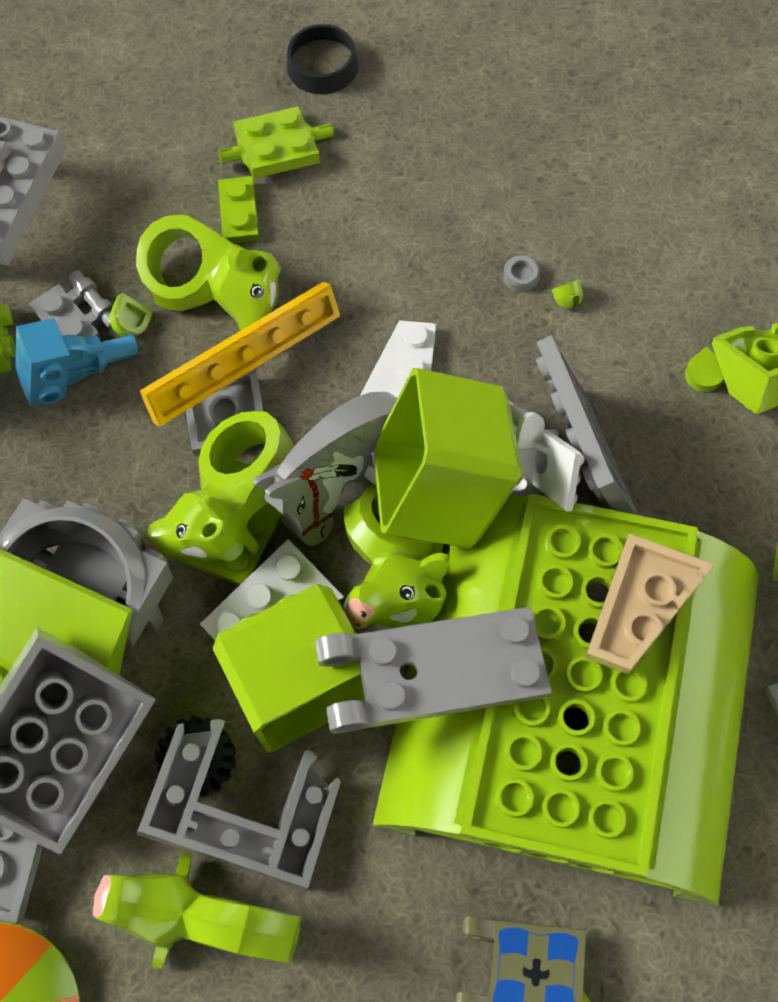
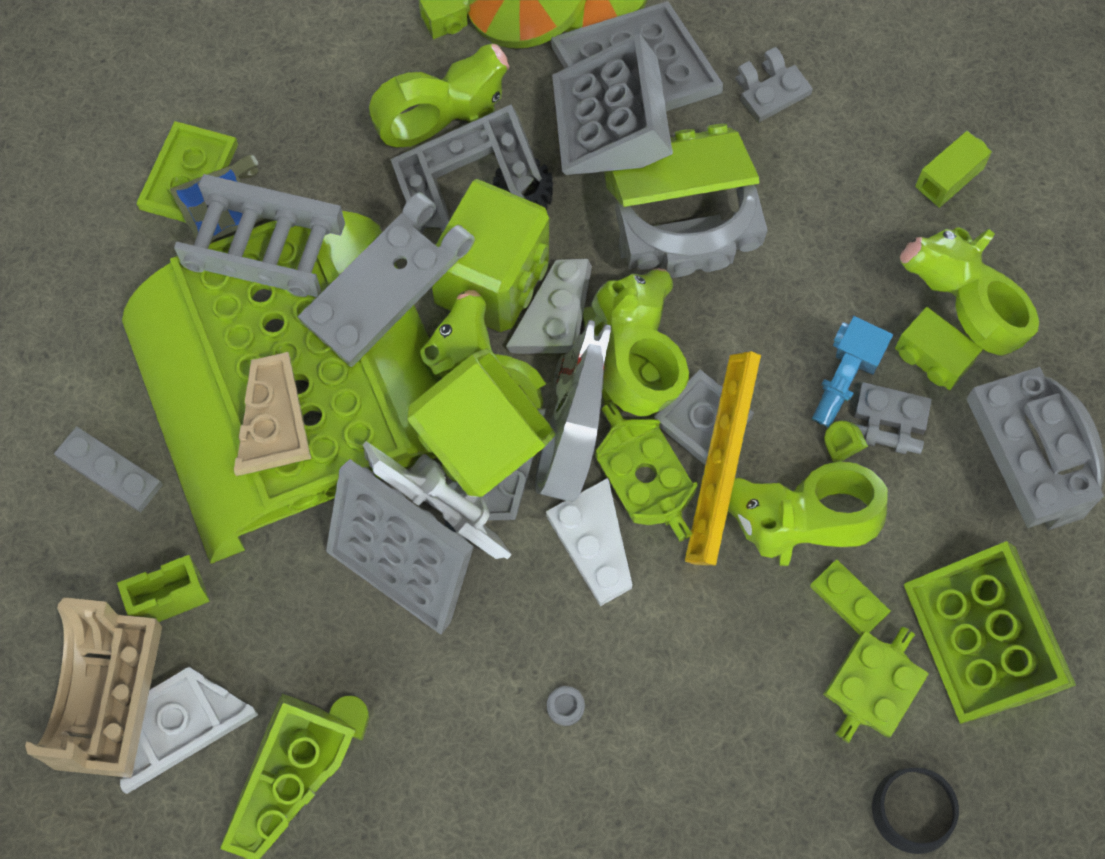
camera: 140 degrees right, 0 degrees up
(163, 121) = (988, 633): none -> lime slope
(309, 371) = (638, 445): none -> lime plate
(519, 861) = (254, 204): none -> light grey fence
(568, 294) = (512, 710): lime hinge -> none

